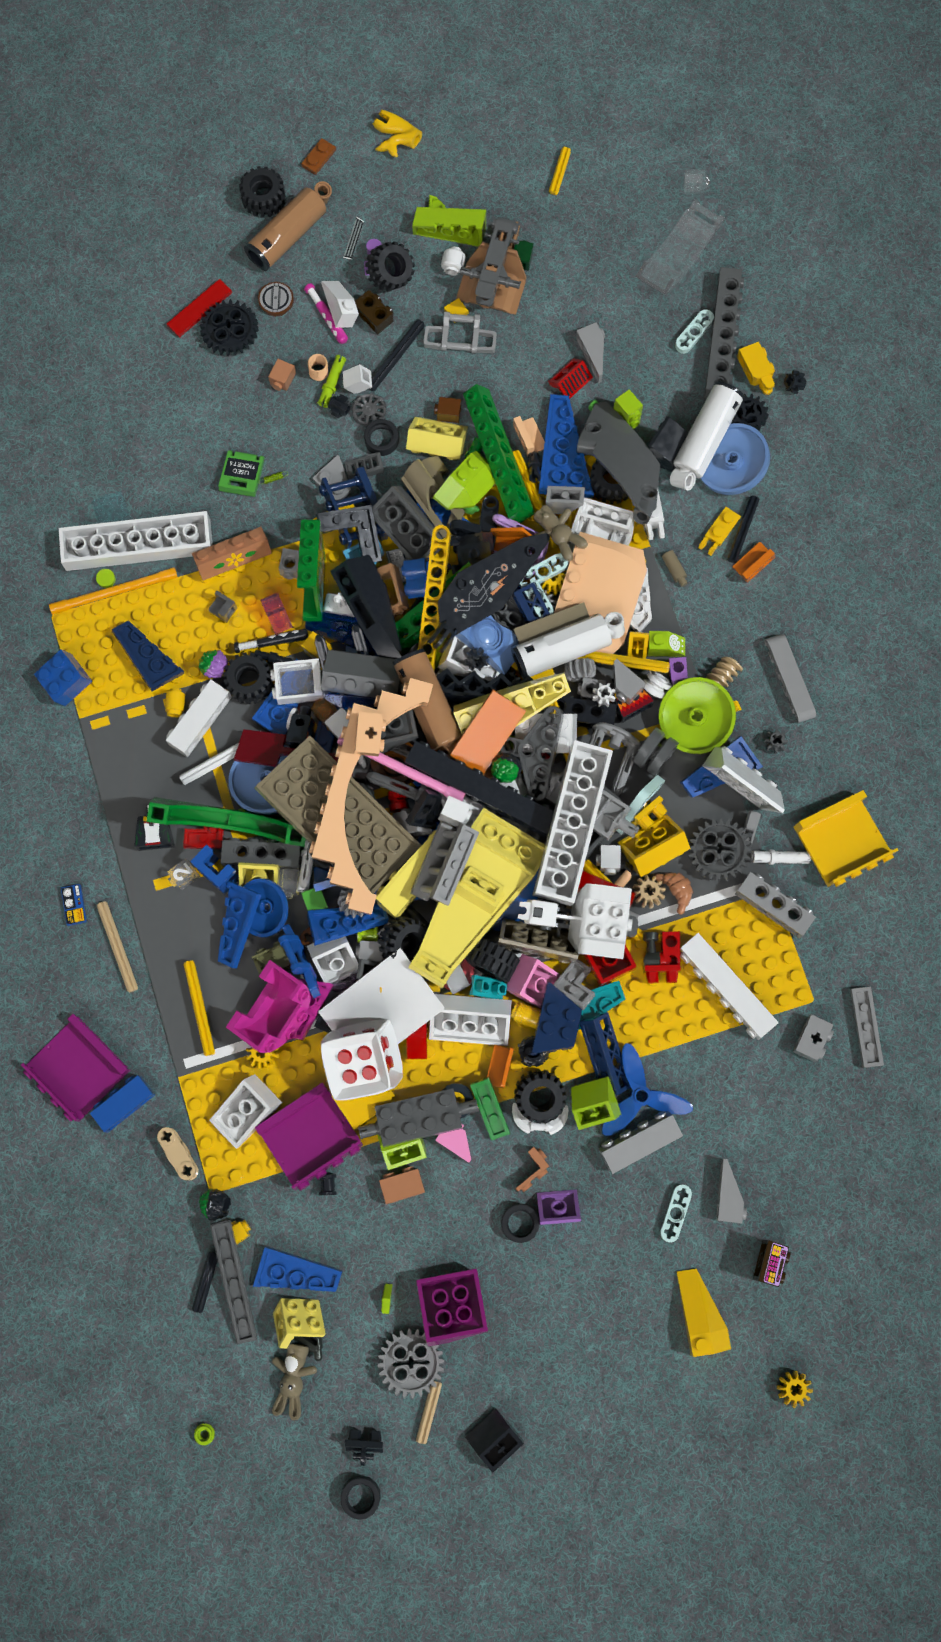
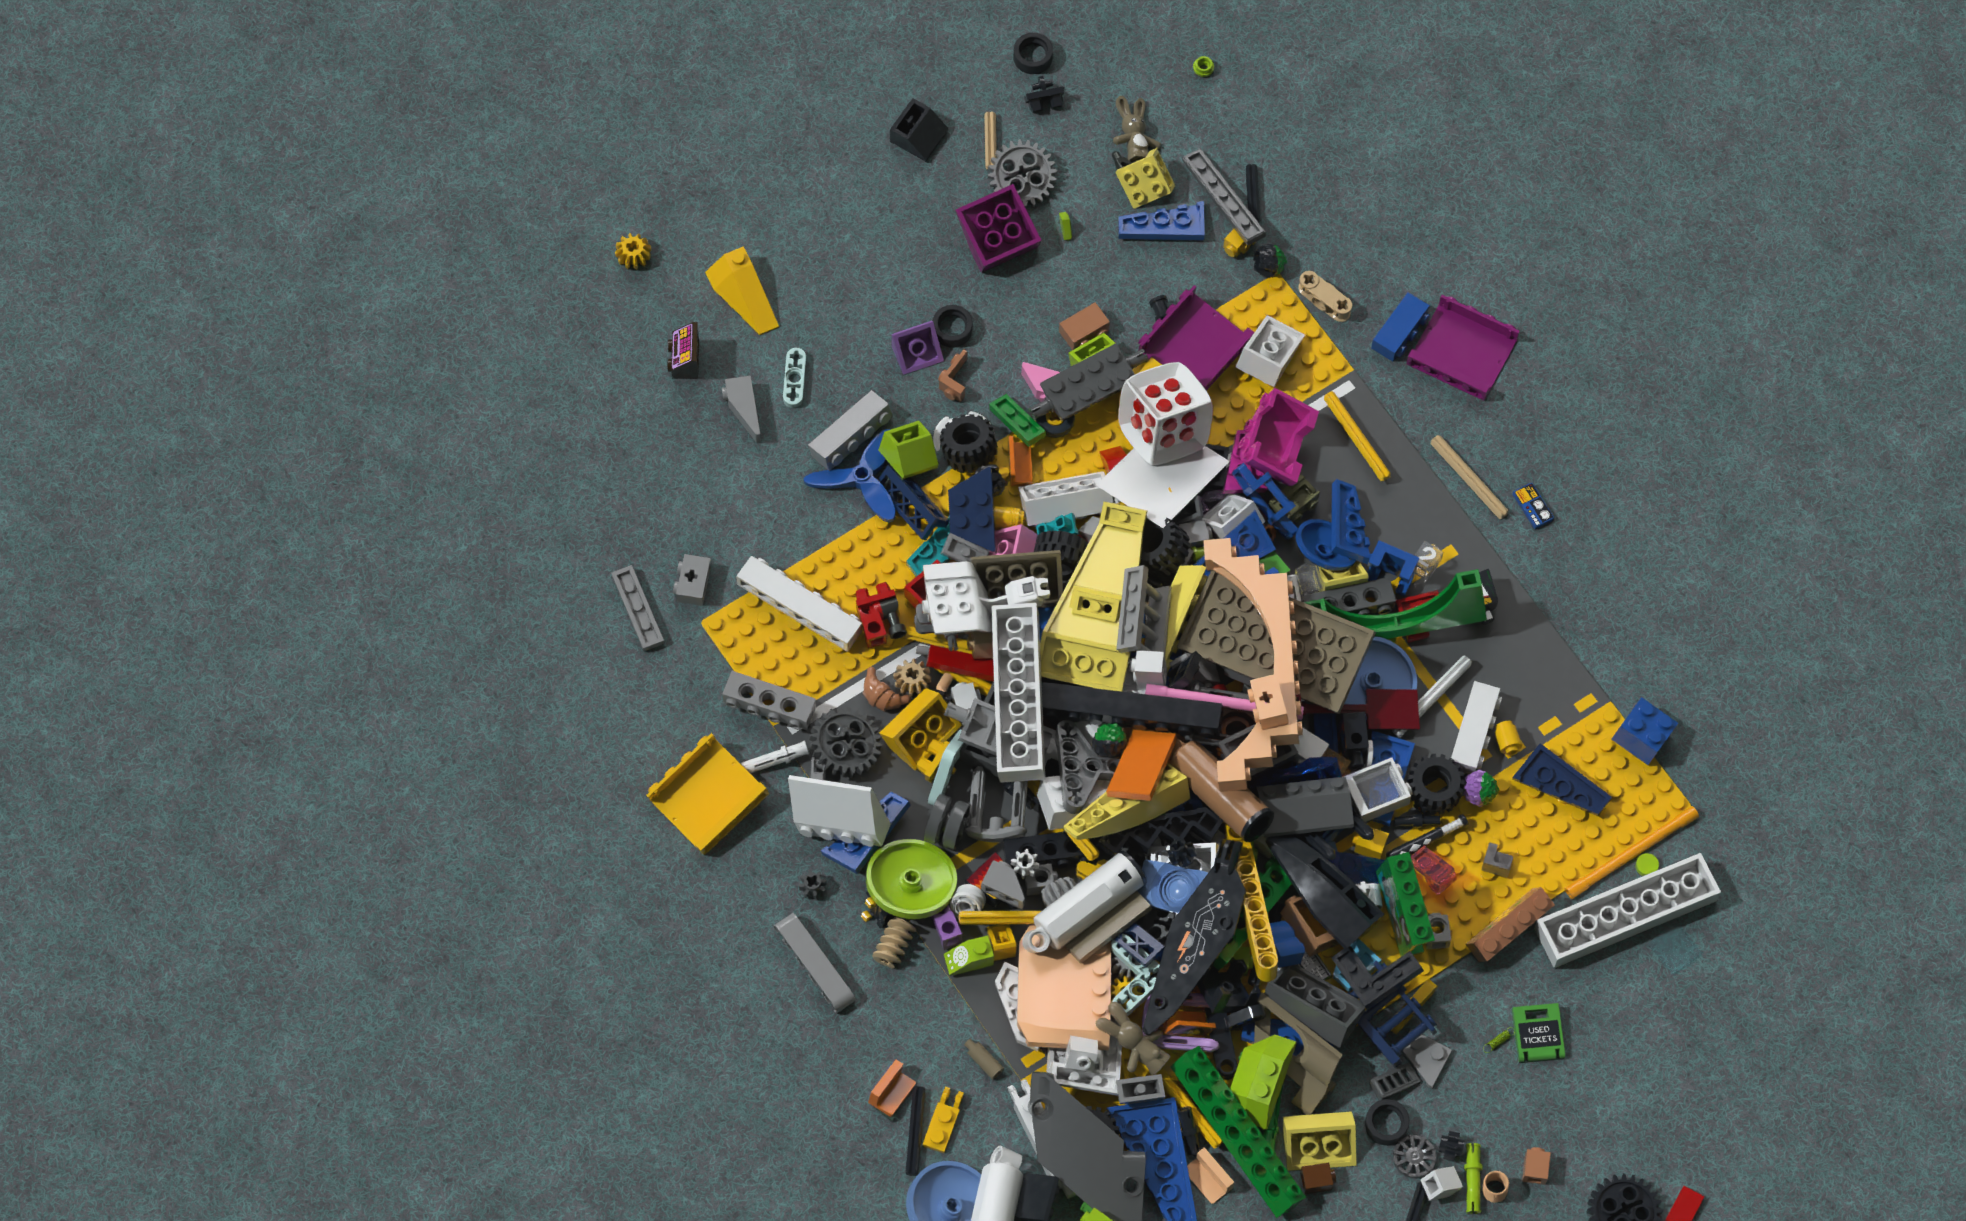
camera: 160 degrees right, 10 degrees down
(604, 527) = (1082, 1054): none -> white brick

